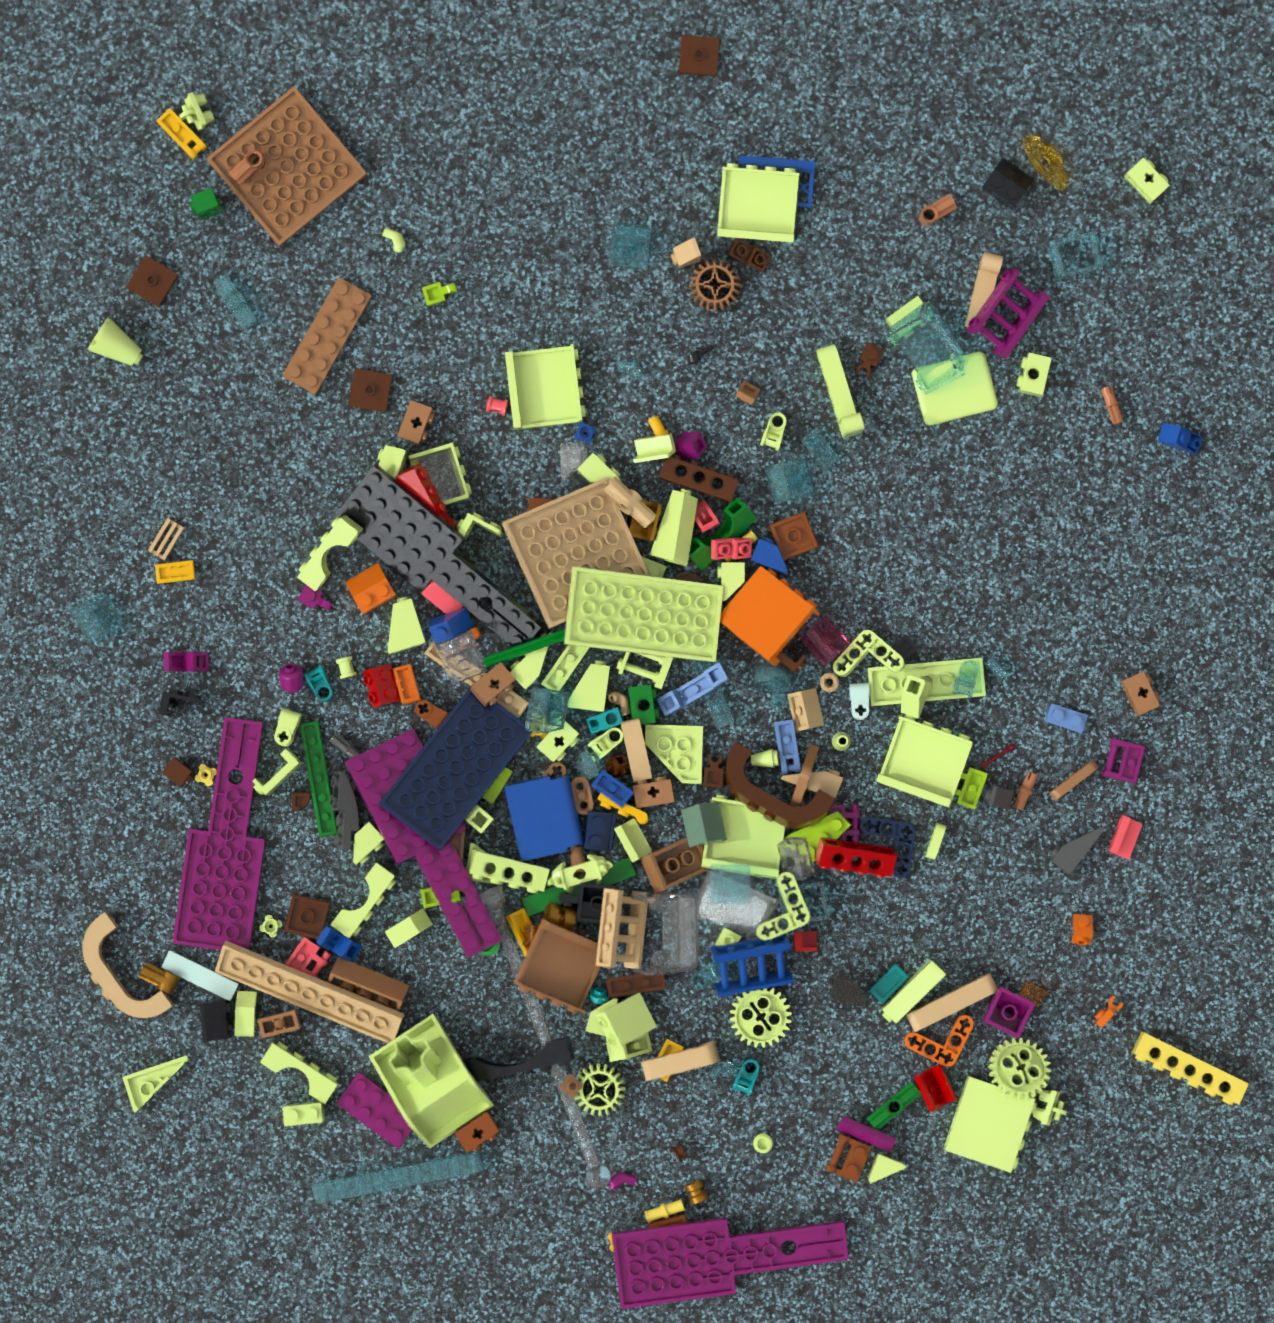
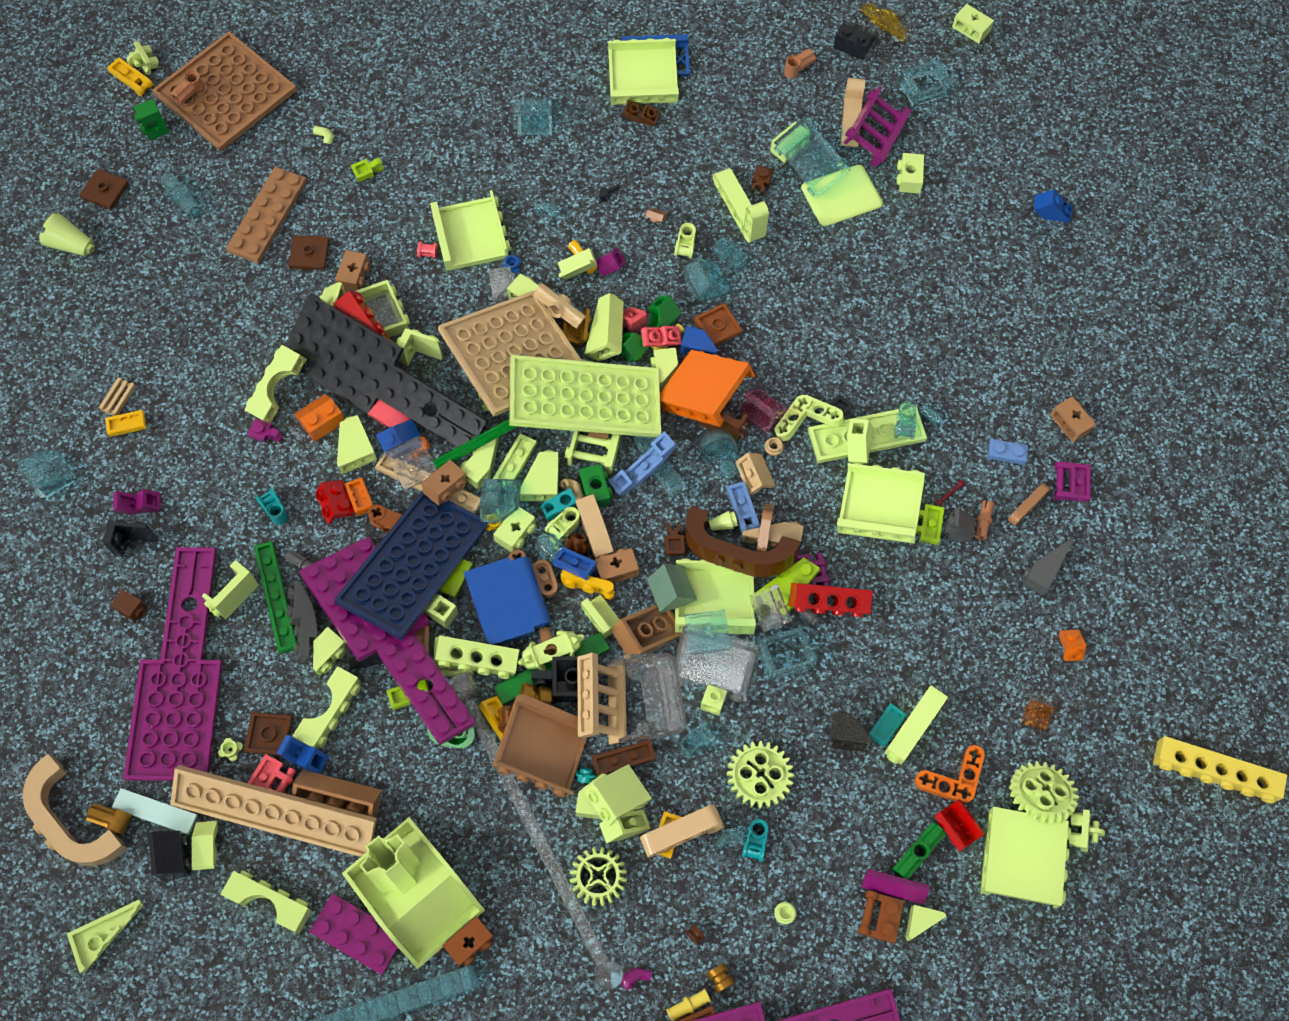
camera: 10 degrees left, 20 degrees down
(207, 780) = (162, 610): light yellow plate -> none
(279, 1023) = (241, 849): medium nougat brick -> none
(288, 723) = (241, 548): yellowish green piece -> none
(291, 678) = (243, 502): magenta head -> none
(300, 800) = (257, 620): reddish brown tile -> none
(303, 1113) = (272, 947): yellowish green brick -> none
(346, 667) = (298, 488): yellowish green bush -> none
(408, 928) = (376, 730): yellowish green slope -> none
(554, 1052) = (543, 837): black arch -> none
(565, 1086) = (561, 875): medium nougat plate -> none
(599, 830) = (566, 609): dark blue plate -> none
(678, 749) = (636, 524): yellowish green plate -> none
(686, 254) = (586, 112): tan slope -> none
(723, 285) = (605, 142): medium nougat gear -> none
(725, 493) = (627, 294): reddish brown brick -> none
(746, 949) = (729, 703): blue fence -> none
(791, 916) = (774, 661): yellowish green beam -> none
(805, 941) = (793, 692): red panel -> none
(835, 741) = (795, 496): yellowish green cone -> none
(859, 697) = (806, 458): light aqua piece -> none
(896, 833) = (866, 577): dark blue beam -> none
(935, 841) = (906, 577): yellowish green beam -> none
(952, 1002) = (957, 734): tan beam -> none
(1008, 1012) = (1018, 735): magenta slope -> none
(1104, 1016) = (1116, 727): orange plate -> none
(1112, 405) = (985, 189): nougat axle -> none
(1125, 837) = (1091, 551): coral panel -> none

